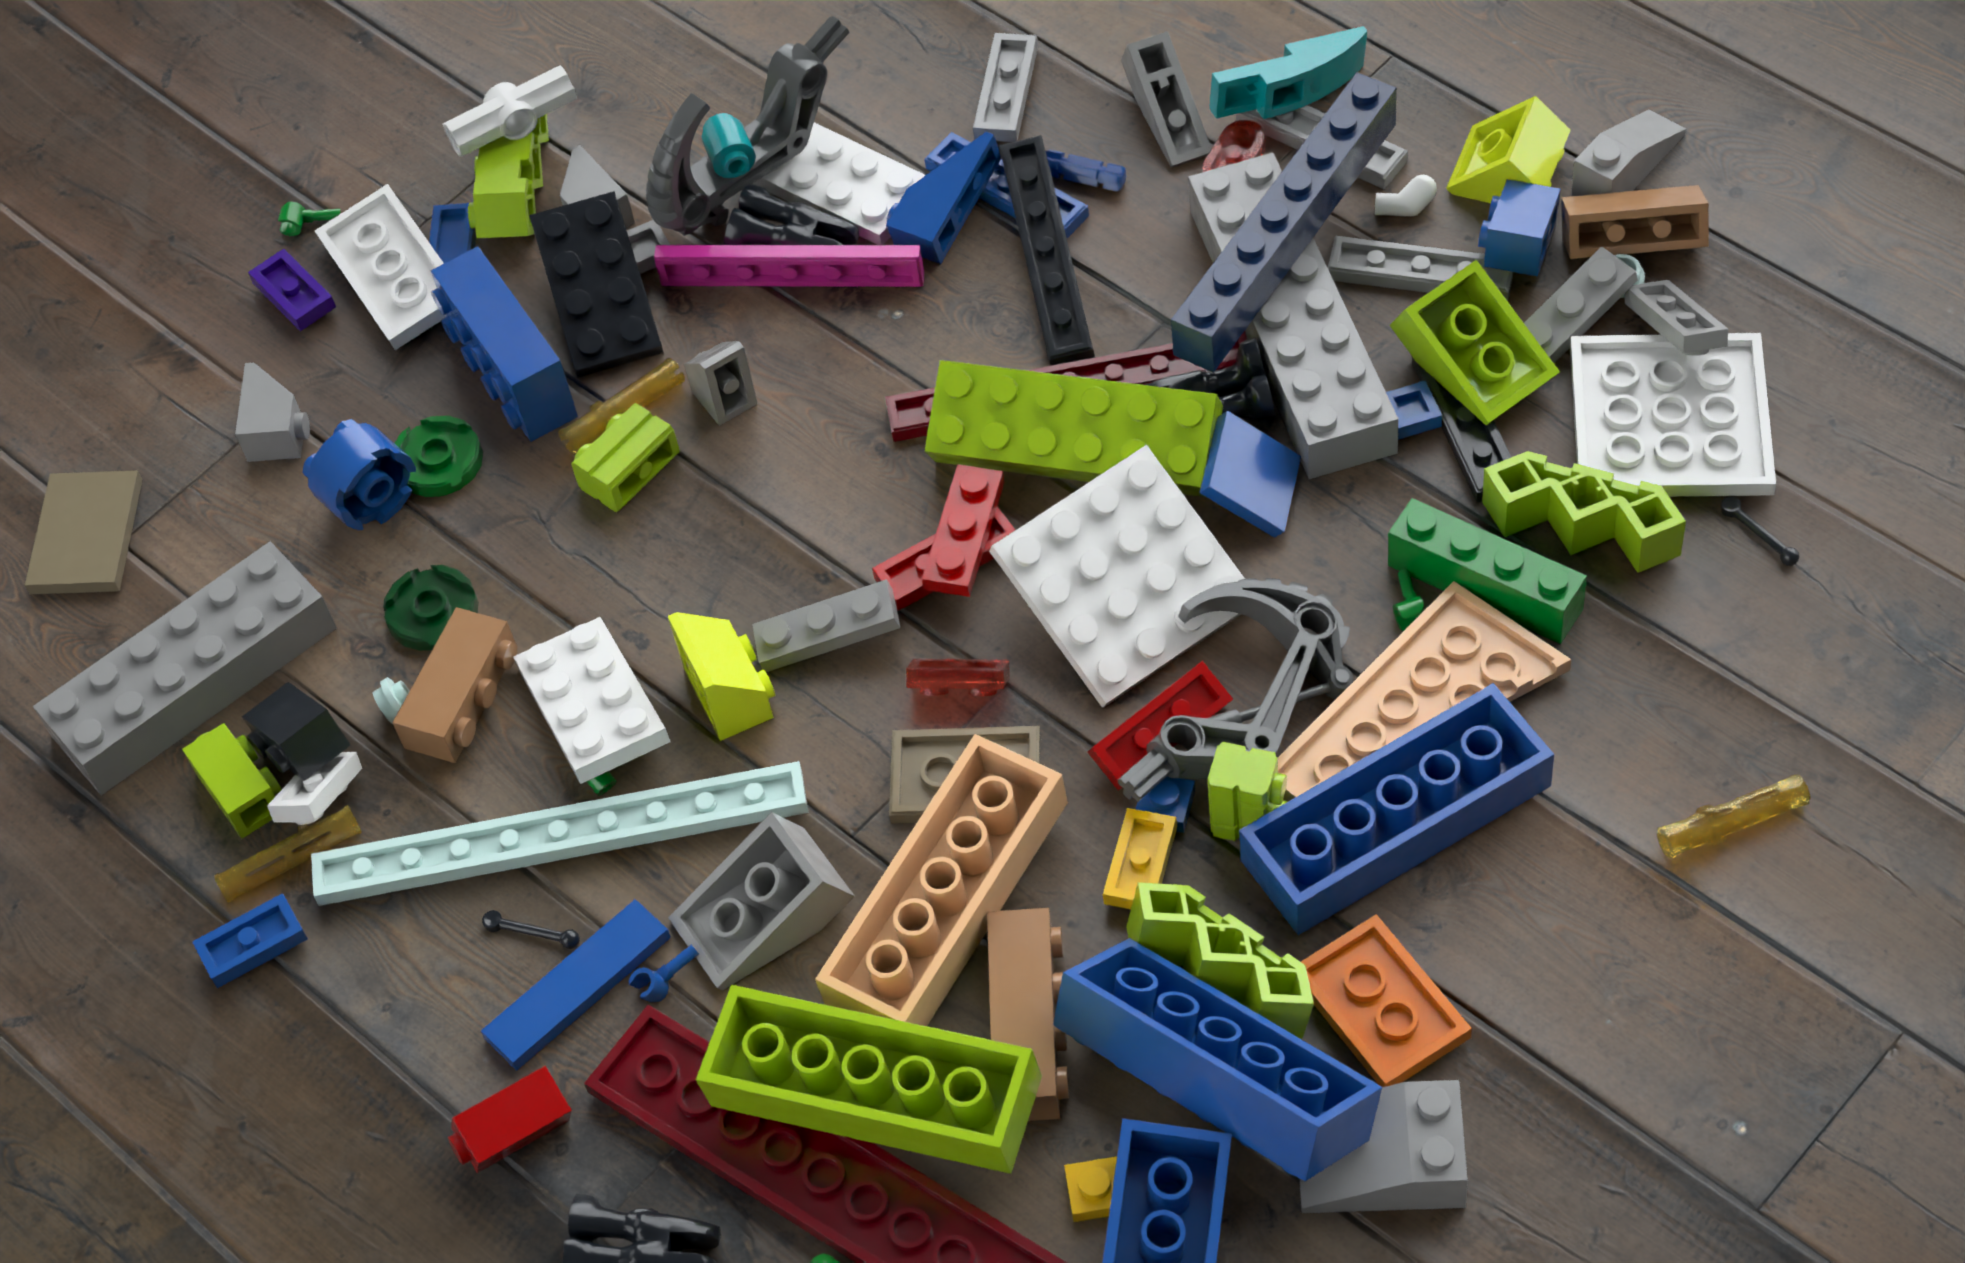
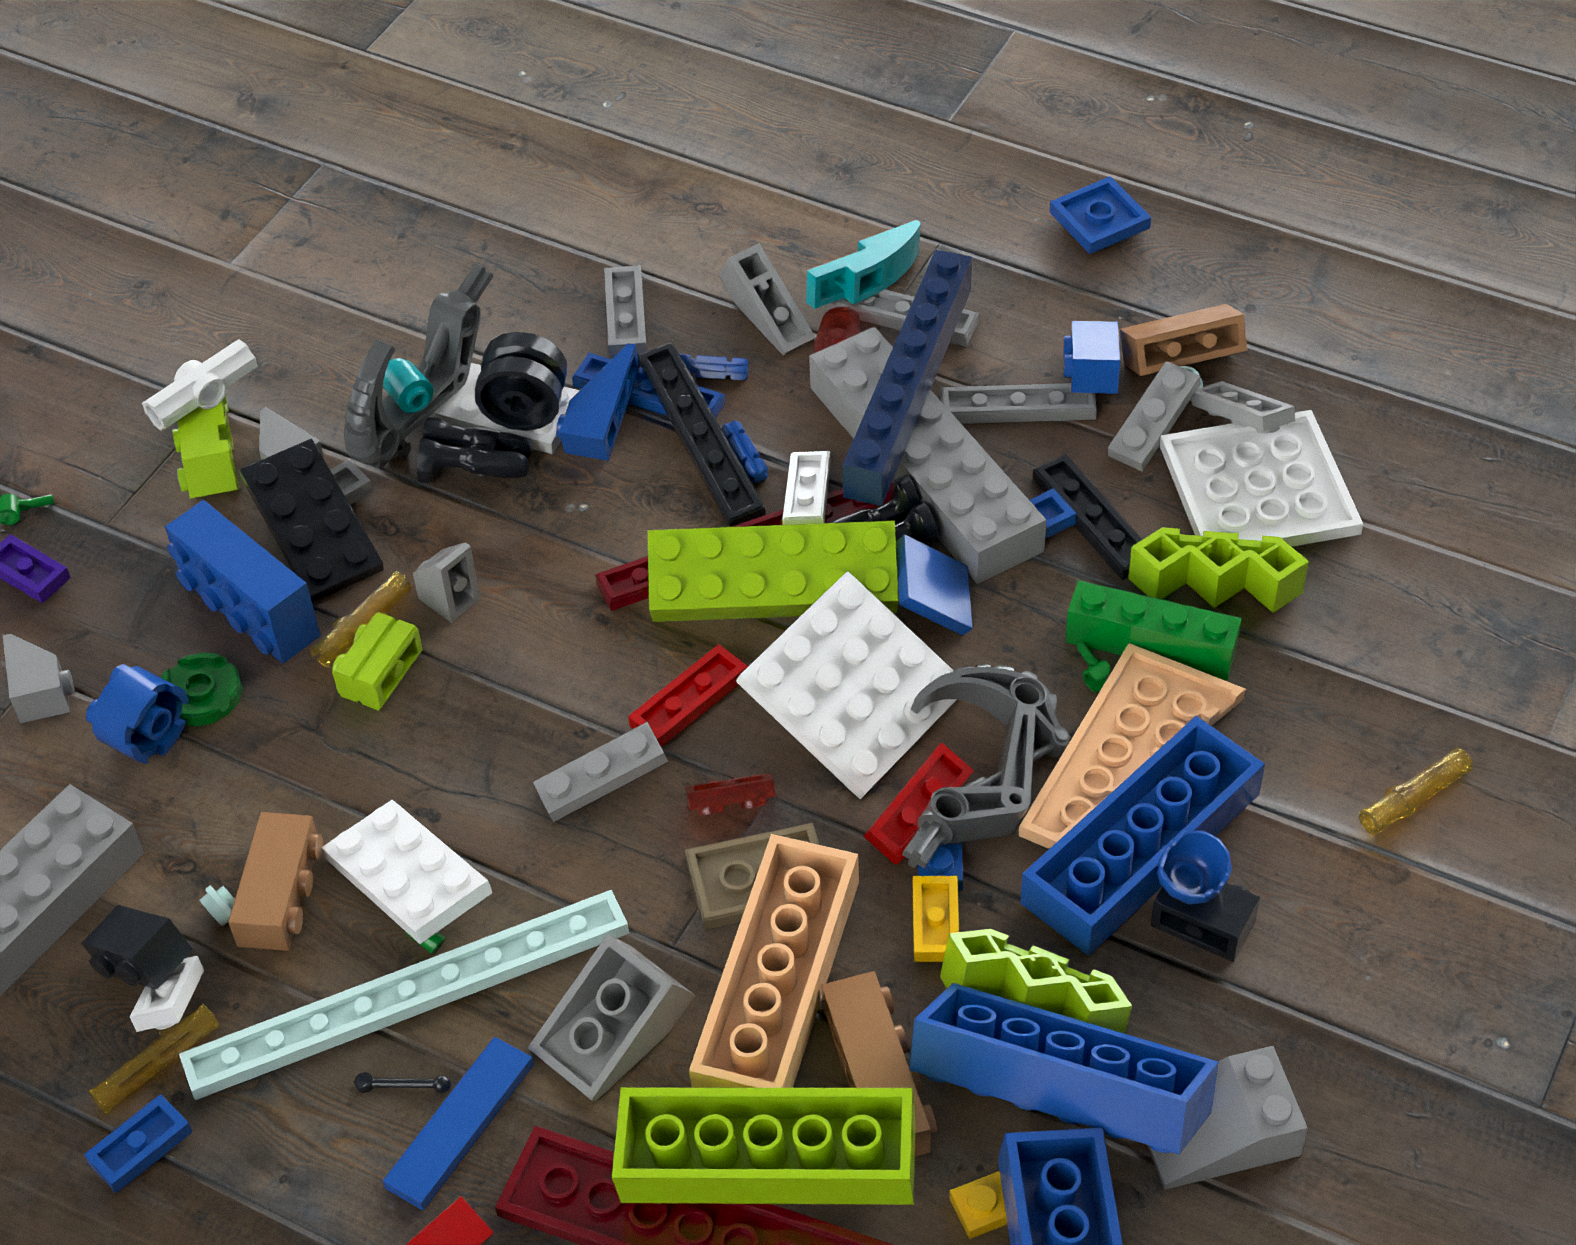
camera: 20 degrees left, 5 degrees down
(232, 778) = (84, 1001): lime brick -> none
(386, 264) = (112, 534): white plate -> none
(423, 603) = (226, 818): dark green tile -> none
(451, 231) = (161, 503): blue tile -> none
(659, 979) = (537, 1099): blue hand -> none
(722, 673) = (520, 828): neon yellow slope -> none
(790, 265) = (478, 479): dark pink tile -> none
(854, 159) = (521, 381): none -> black wheel
(963, 530) = (700, 671): plate -> none
(1091, 278) = (745, 451): none -> blue axle
(1143, 337) = (807, 488): none -> white tile
(1242, 788) = (1013, 841): lime brick -> none
(1383, 1003) = (1182, 996): orange plate -> none
(1409, 200) = (992, 351): white arm -> none
(1430, 860) = (1194, 867): none -> blue hair
(1442, 909) = (1215, 925): none -> black brick
(1474, 344) = (1087, 452): lime slope -> none
(1512, 145) = (1062, 295): neon yellow slope -> none
(1588, 49) = (1100, 214): none -> blue plate
(1624, 154) = (1156, 291): light grey slope -> none
(1732, 508) = (1330, 549): black hinge -> none

